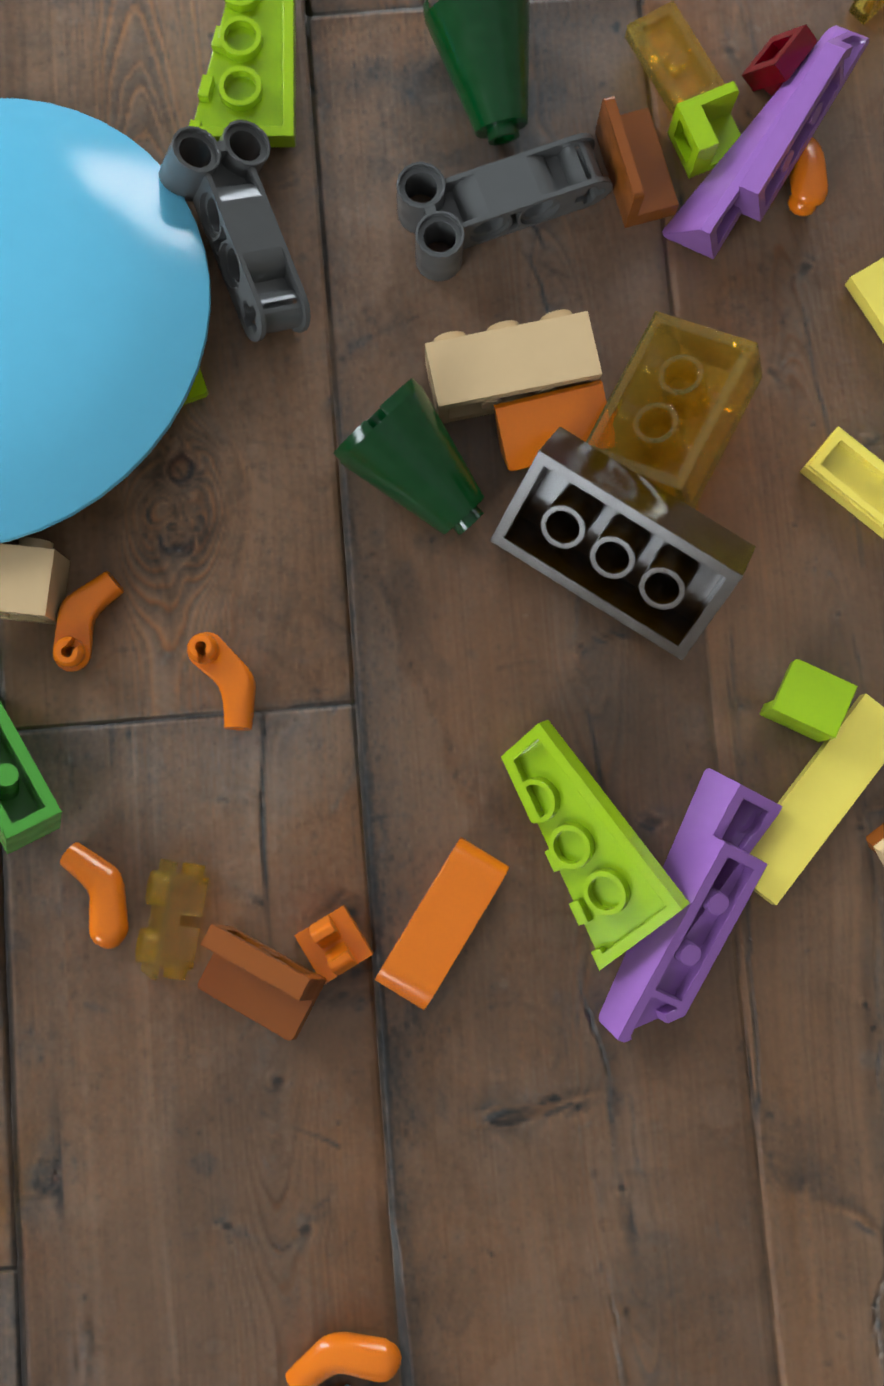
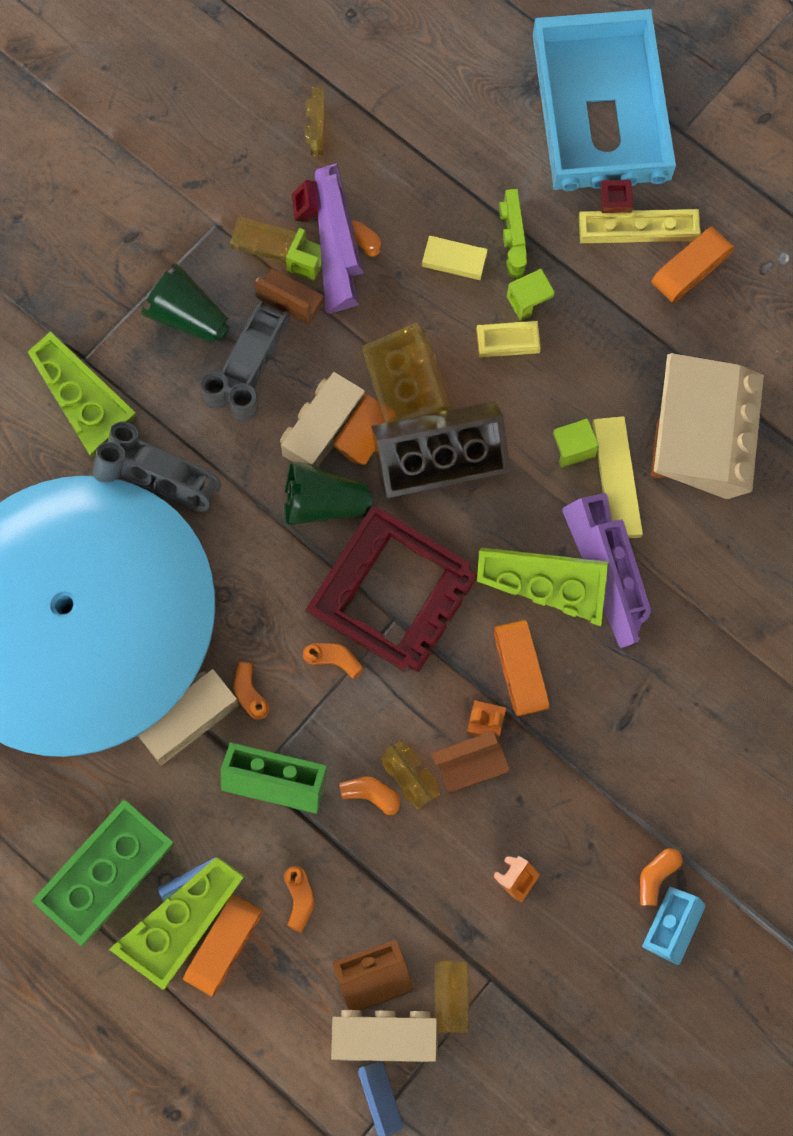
camera: 45 degrees left, 10 degrees down
(165, 1188) = (519, 877): none -> orange tile
(365, 589) = (355, 565): none -> dark red hinge

